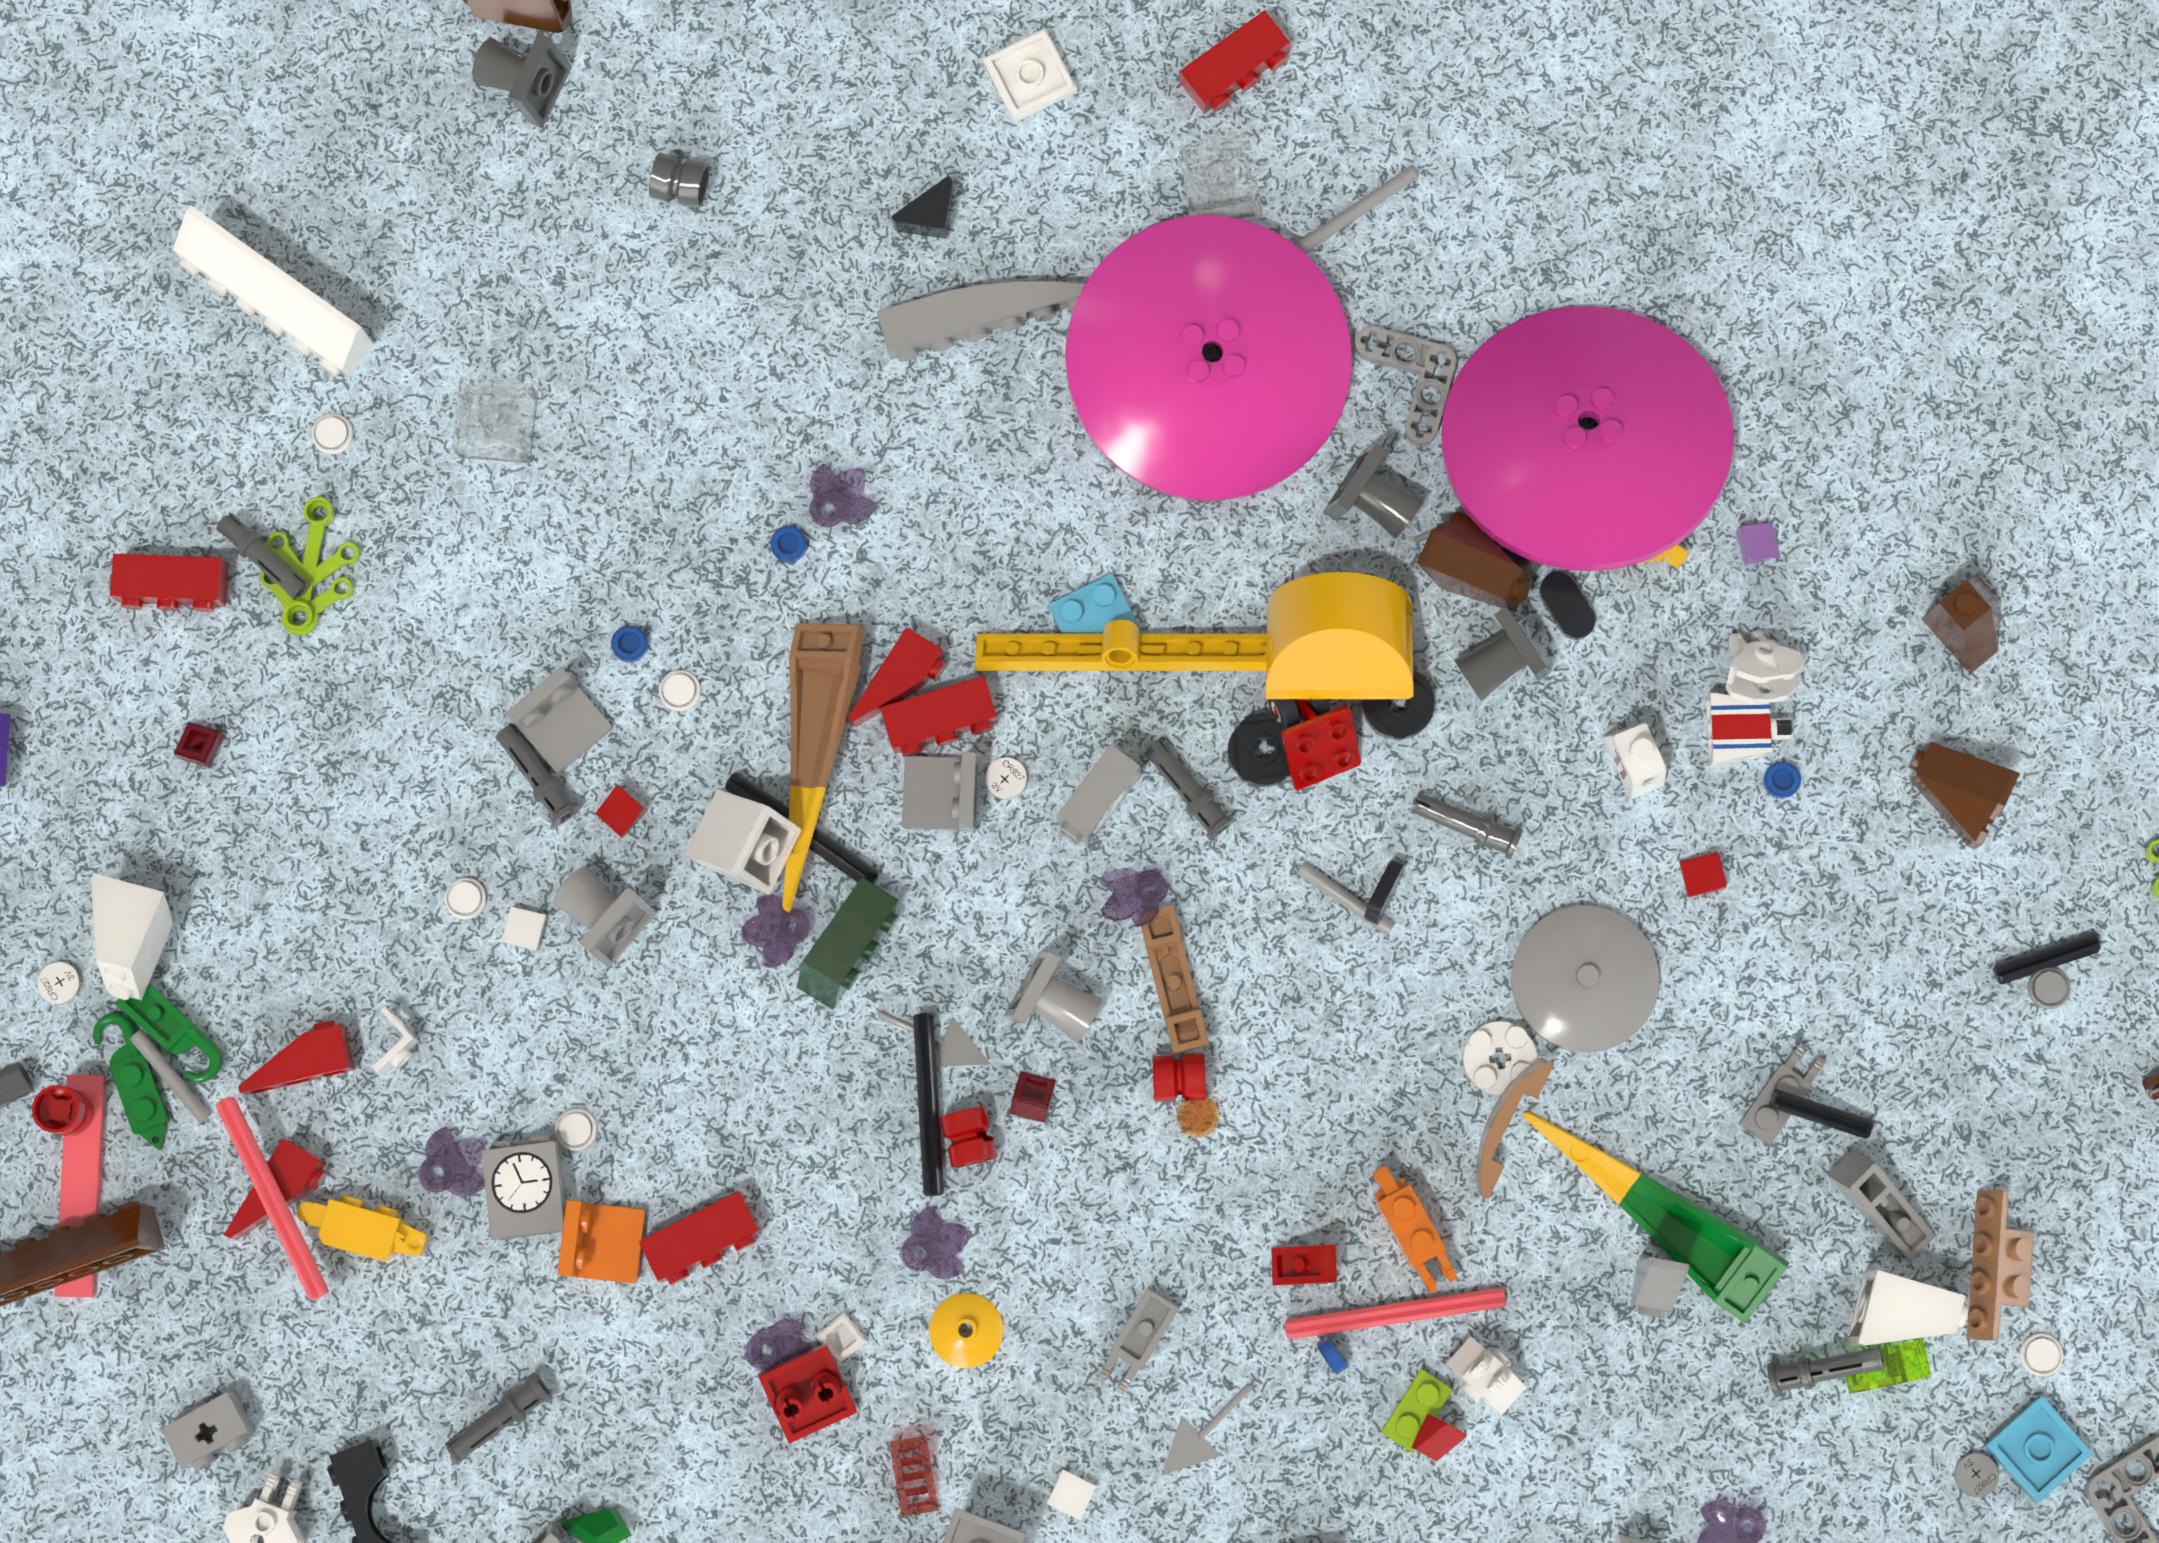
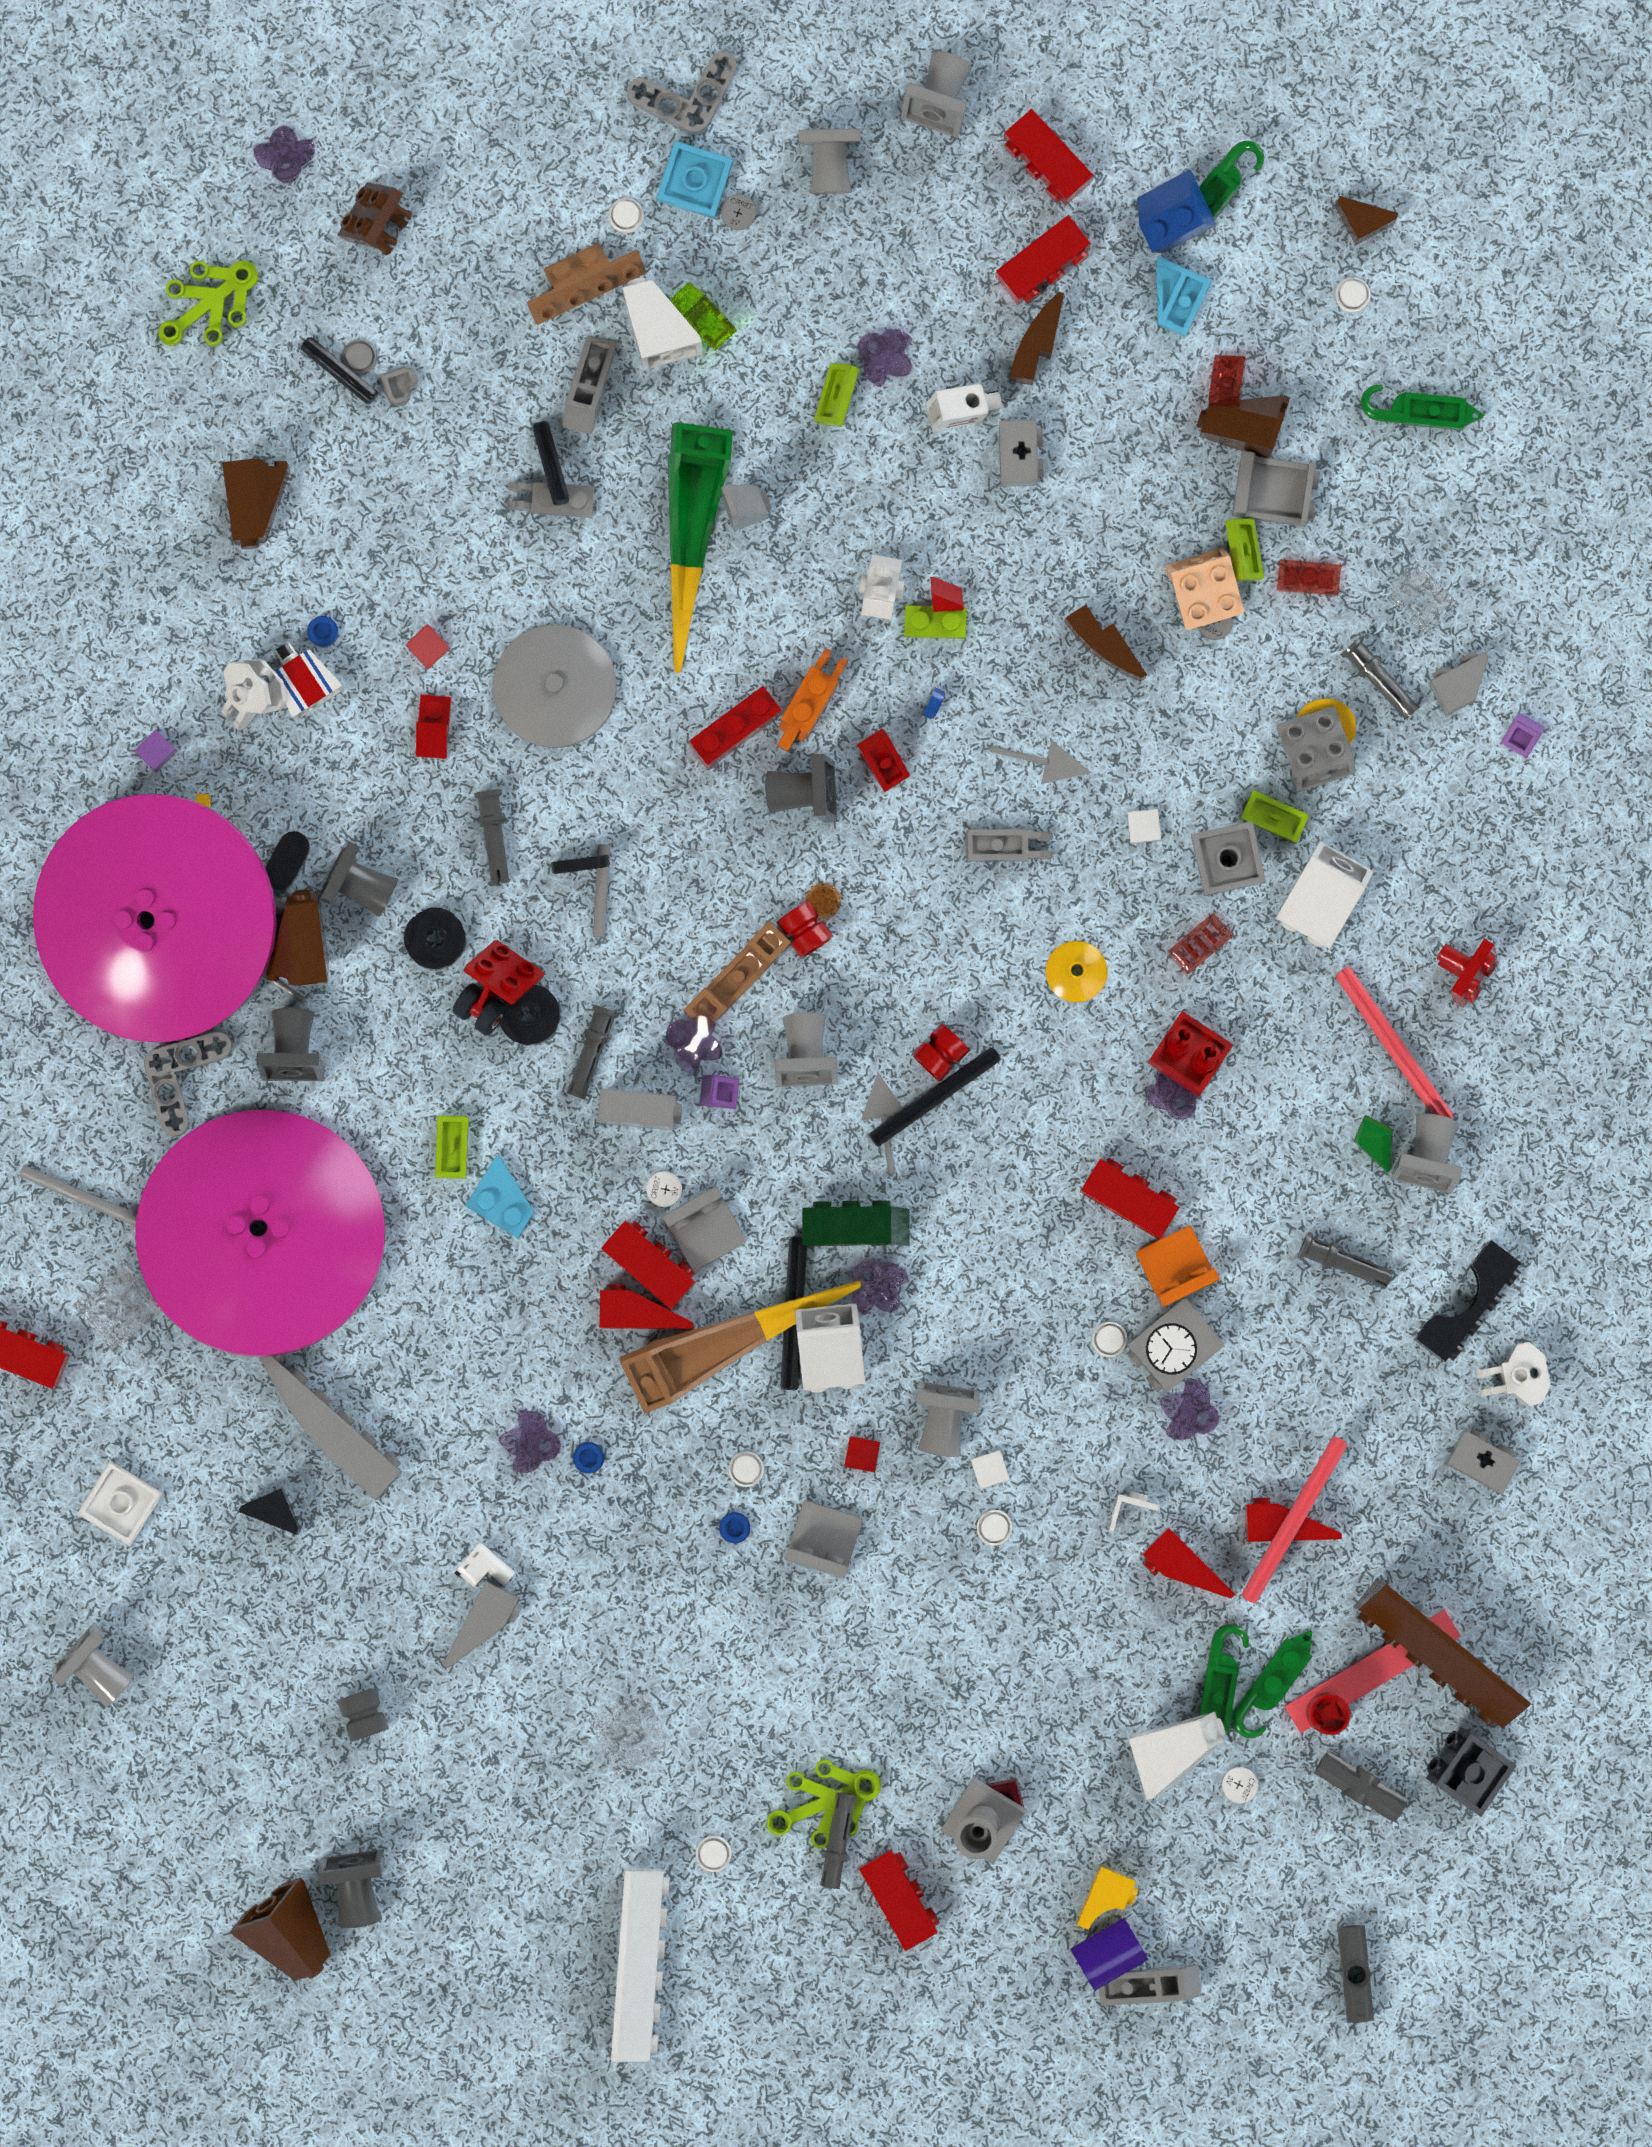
camera: 125 degrees left, 5 degrees up
(40, 786) = (1107, 1892): none -> yellow arch
(170, 1076) = (1255, 1656): light grey bar -> none
(185, 703) = (982, 1821): none -> light grey plant
(362, 1230) = (1275, 1443): yellow hinge -> none
(546, 787) = (878, 1519): dark grey pin -> none
(695, 353) = (487, 1617): none -> light grey slope
(753, 380) = (482, 1562): none -> white piece
(841, 1337) = (1136, 1055): white tile -> none
(940, 1242) = (1026, 1028): clear purple plate -> none
(1032, 1096) = (882, 1026): dark red slope -> none
(1069, 892) = (719, 1091): none -> medium lavender slope
(1178, 594) = (452, 1147): none -> lime plate
(1322, 641) = (431, 1019): yellow plate -> none
(1323, 1162) = (808, 789): none -> dark grey plant
(1395, 1313) = (876, 677): coral axle -> none
(1430, 1134) = (735, 727): none -> red brick
(1483, 1044) = (649, 694): white plate -> none
(1530, 1082) = (656, 678): medium nougat slope -> none
(1616, 831) = (433, 726): none -> red slope
(1636, 759) = (371, 744): white torso -> none
(1719, 1456) = (836, 394): none -> lime plate
(1808, 1372) = (740, 367): dark grey pin -> none
(1968, 622) = (123, 565): reddish brown slope -> none
(1996, 1010) = (399, 384): none -> light grey tile

